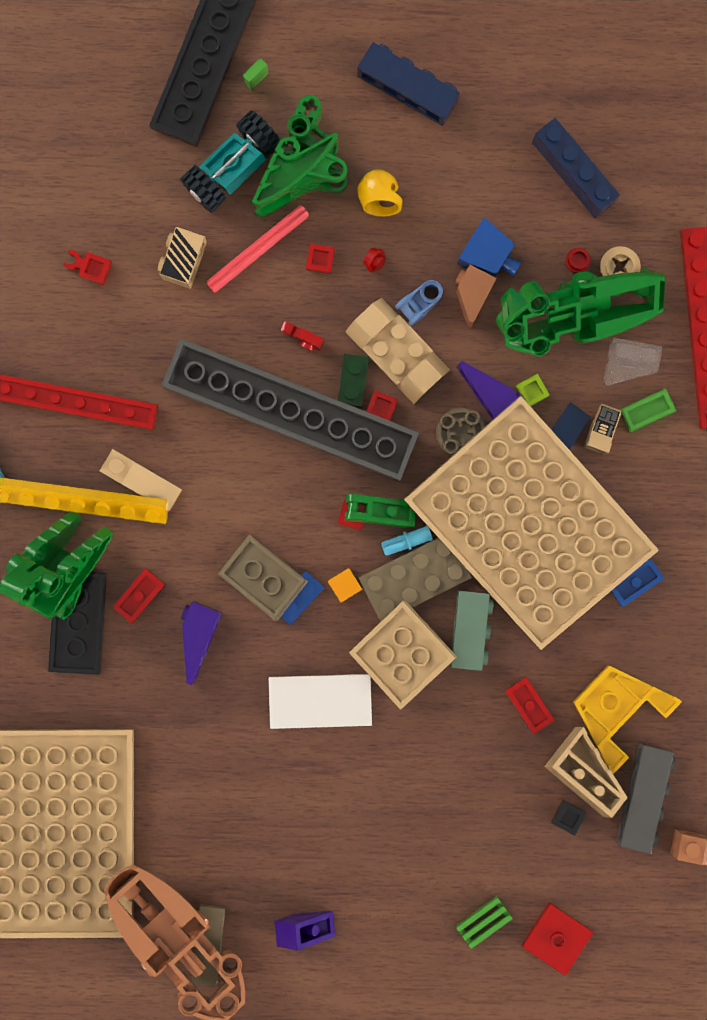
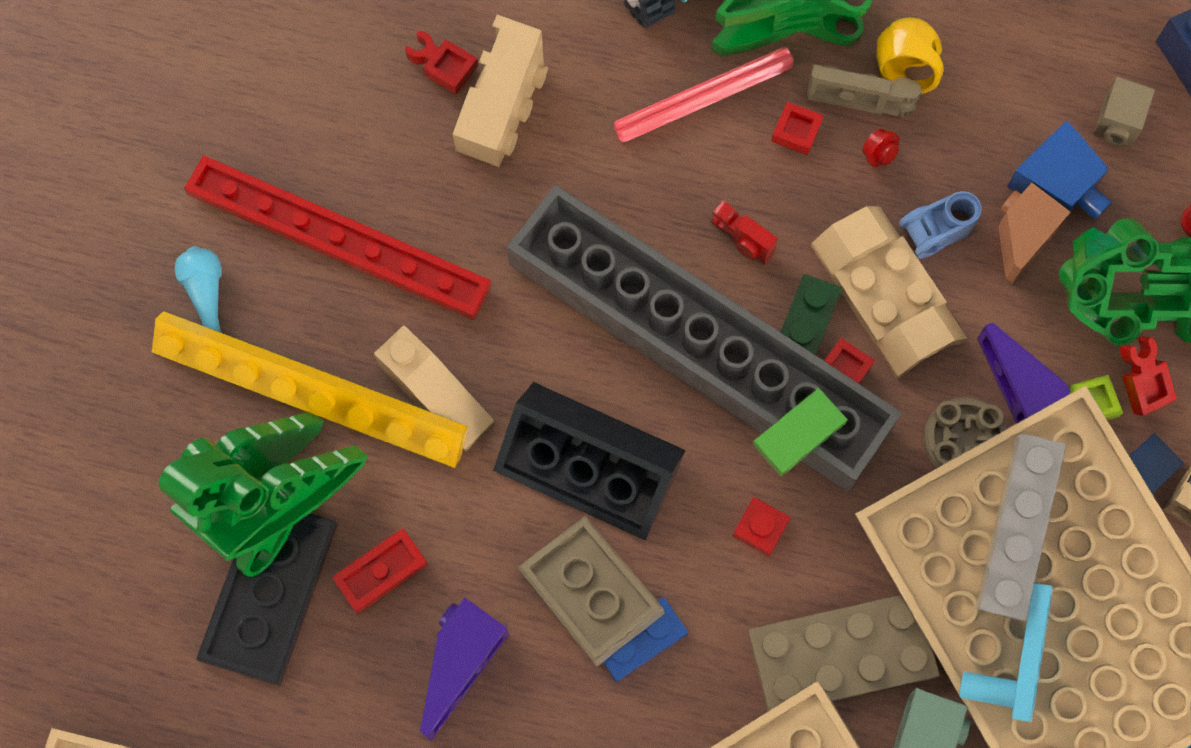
camera: 15 degrees right, 15 degrees down
(131, 282) = (501, 93): none -> tan wedge
(182, 257) = (587, 79): brick -> none
(242, 500) = (588, 460): none -> black slope
(344, 585) = (722, 637): light orange tile -> none
(355, 224) = (863, 91): none -> dark tan hinge
(361, 460) = (799, 432): none -> bright green tile
(380, 511) = (809, 527): green plate -> none
(406, 540) = (842, 588): medium azure axle -> none
(498, 490) = (1020, 526): none -> light grey brick
(517, 581) = (1021, 693): none -> medium azure piece
(518, 200) = (1123, 112): none -> dark tan brick
(561, 372) = (1149, 381): none -> red plate

